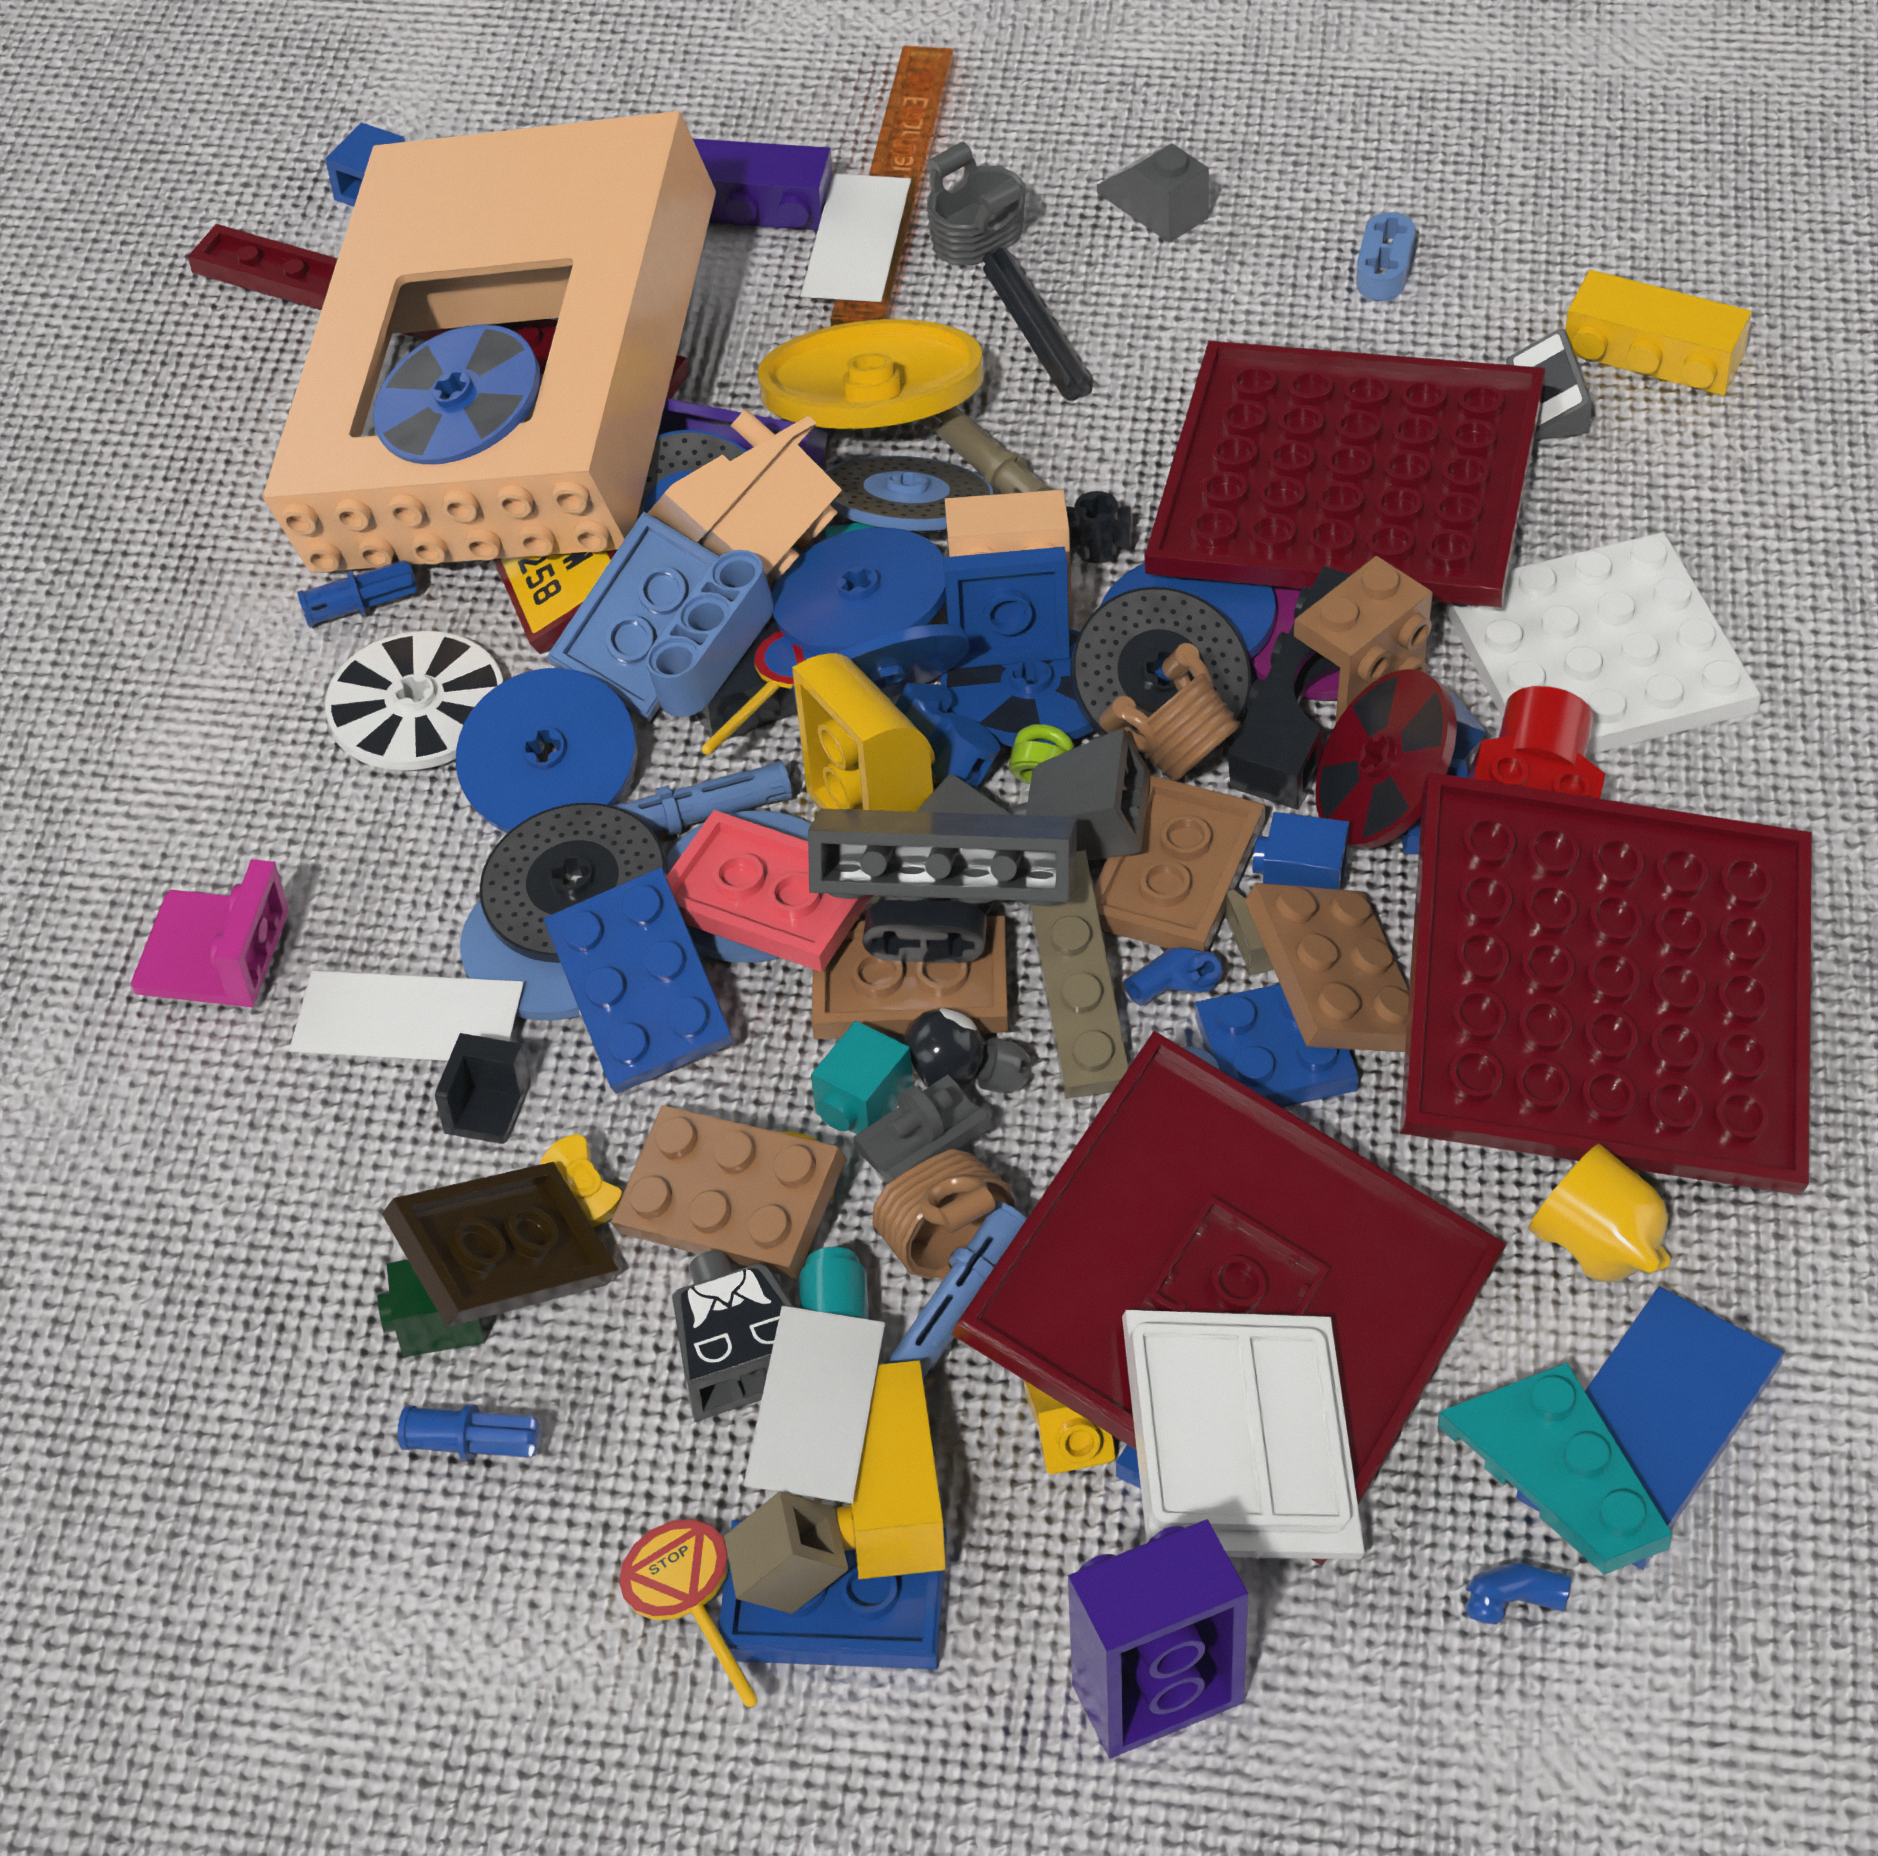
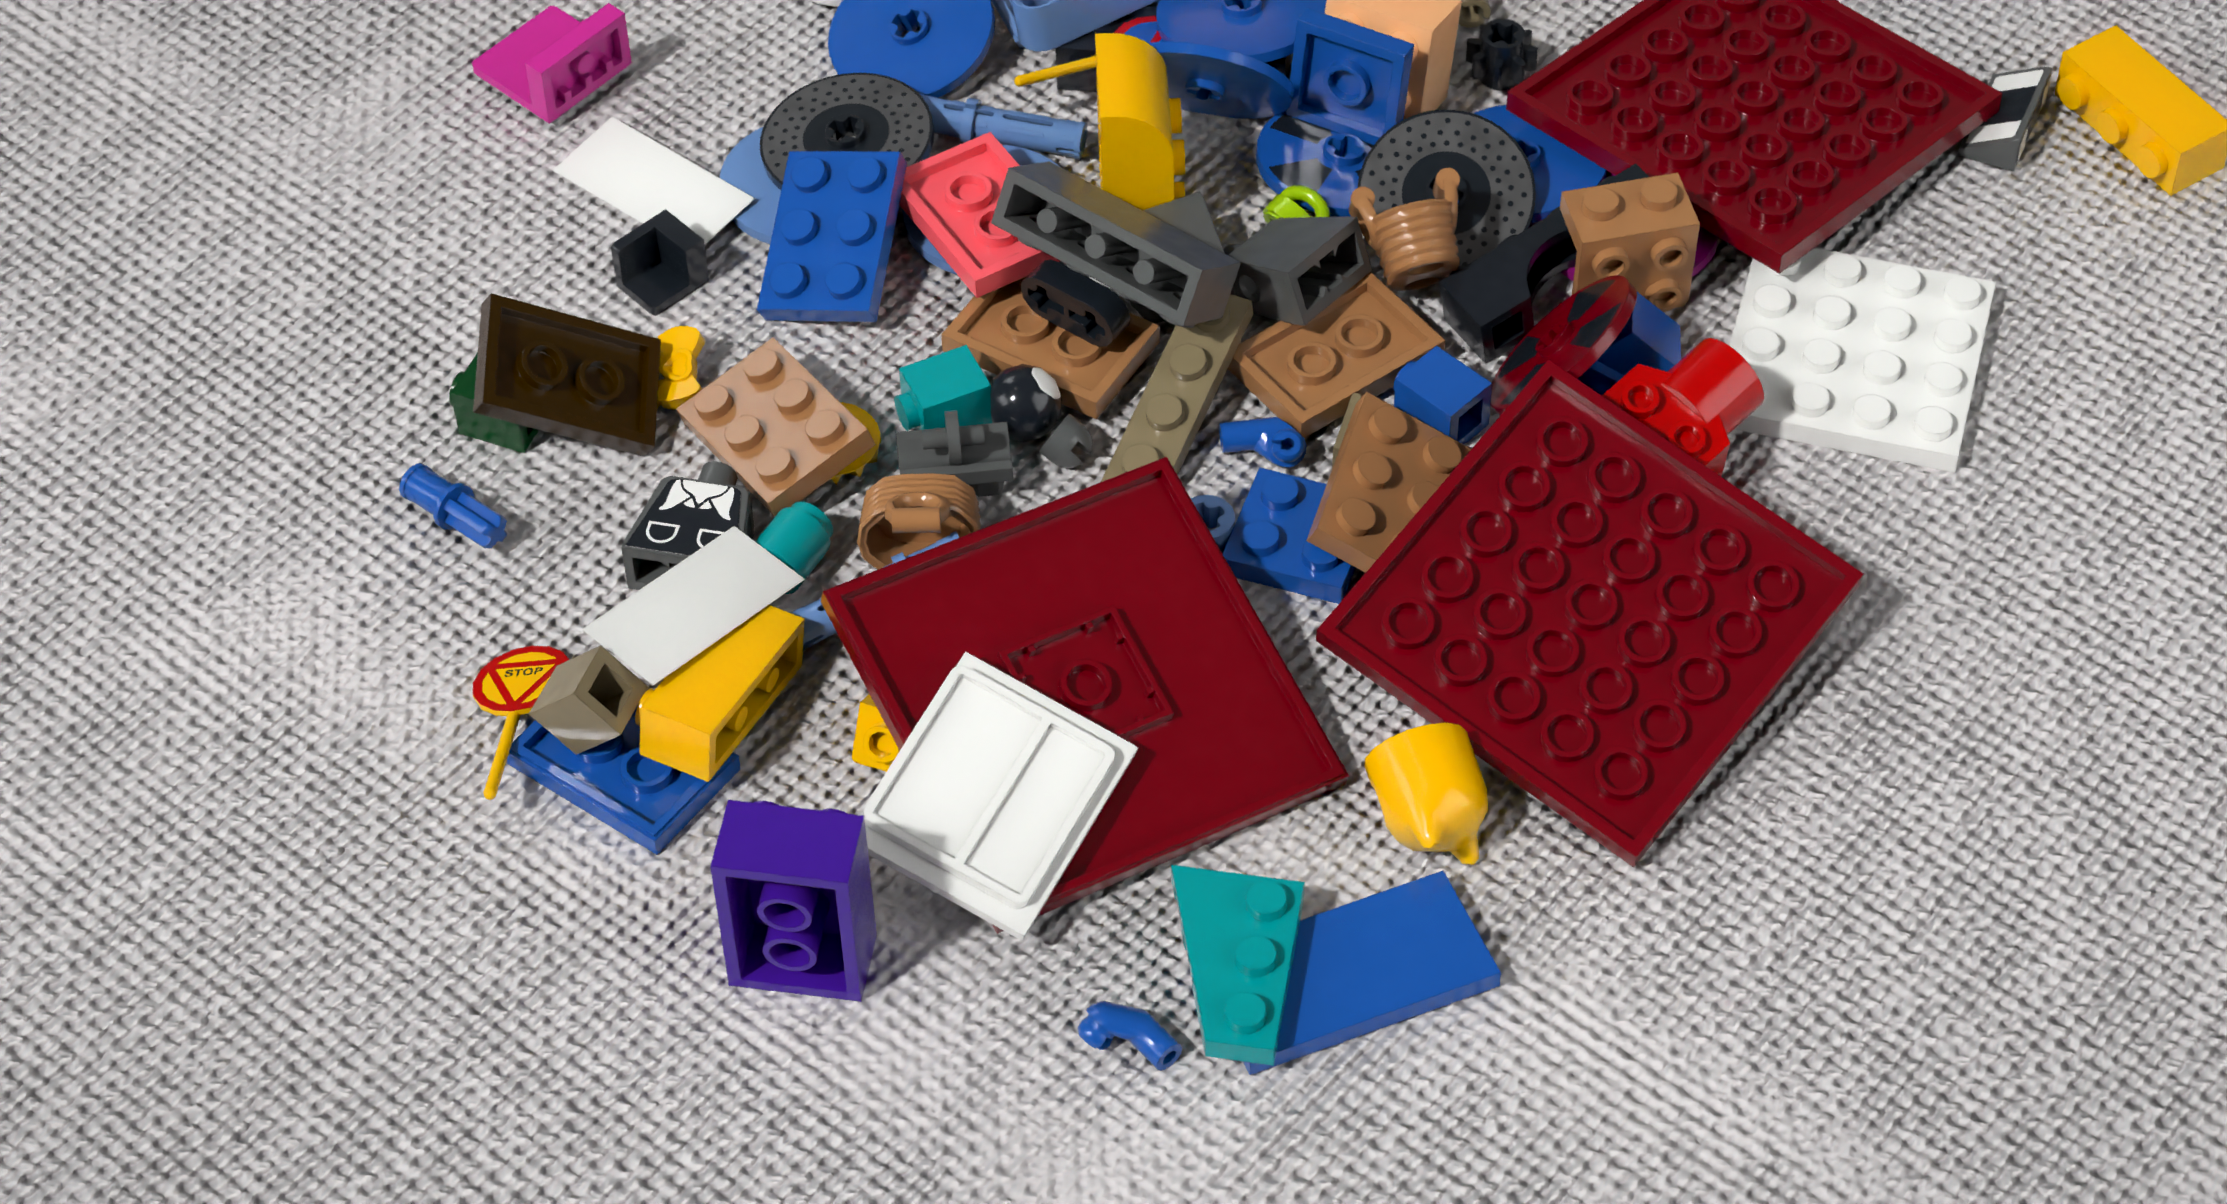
camera: 30 degrees right, 0 degrees up
(958, 743) = (1219, 157): blue leg -> none

